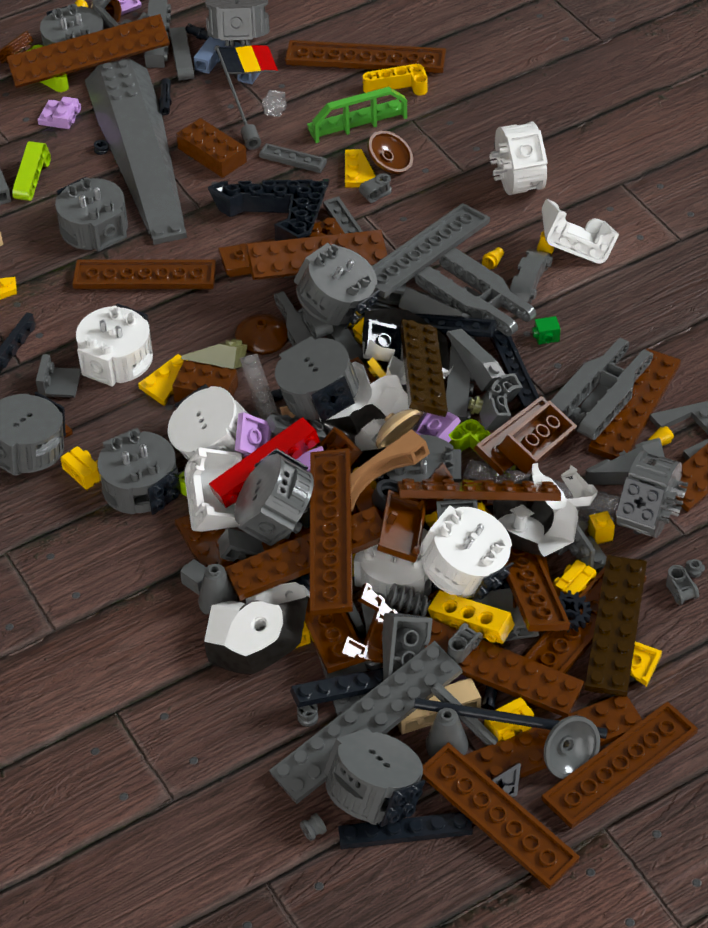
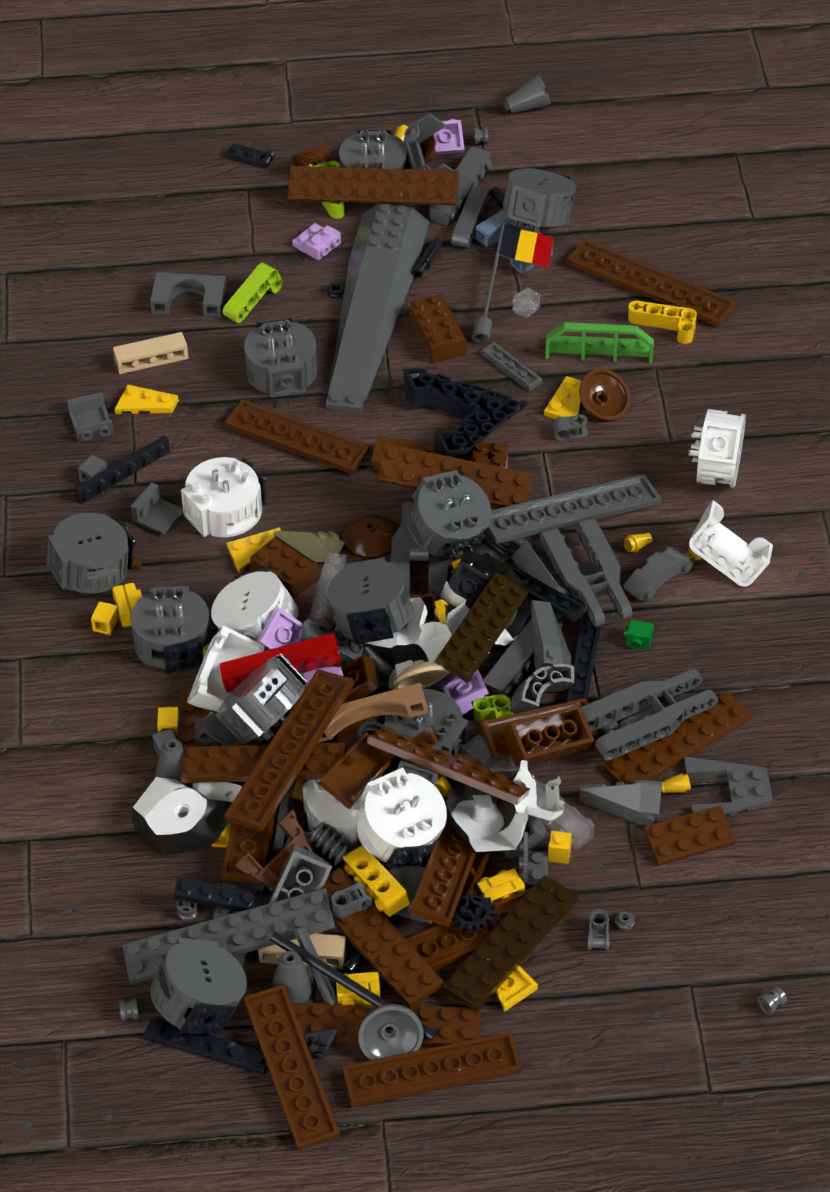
camera: 25 degrees right, 0 degrees up
(67, 487) = (104, 618): none -> yellow brick
(183, 553) = (168, 719): none -> yellow brick
(337, 210) = (518, 446): dark grey plate -> none
(475, 405) = (515, 682): olive plate -> none
(650, 494) = (615, 832): piece -> none

